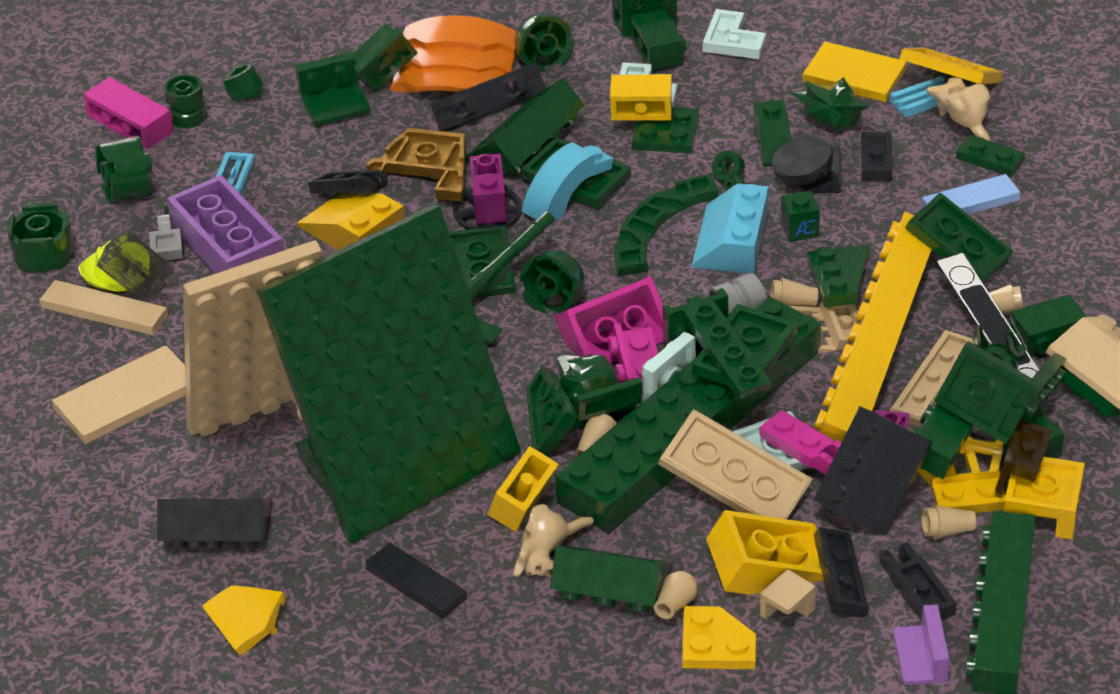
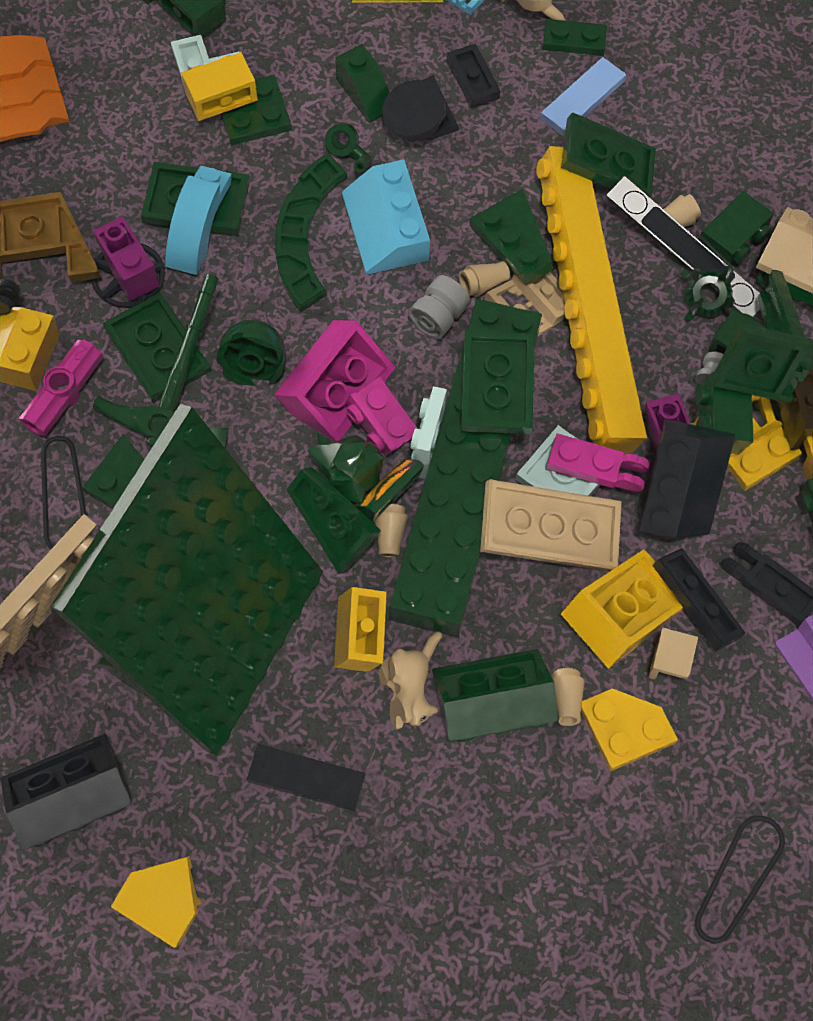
camera: 30 degrees left, 25 degrees up
(487, 96) = (55, 131): black hinge -> none
(531, 126) = (117, 162): dark green slope -> none
(545, 36) = (76, 36): dark green cylinder -> none
(713, 333) = (474, 386): dark green bracket -> none
(800, 216) = (444, 179): dark green brick -> none
(831, 104) = (403, 28): dark green hair -> none
(930, 376) = (659, 329): tan tile -> none
(946, 521) = (761, 500): tan cone -> none

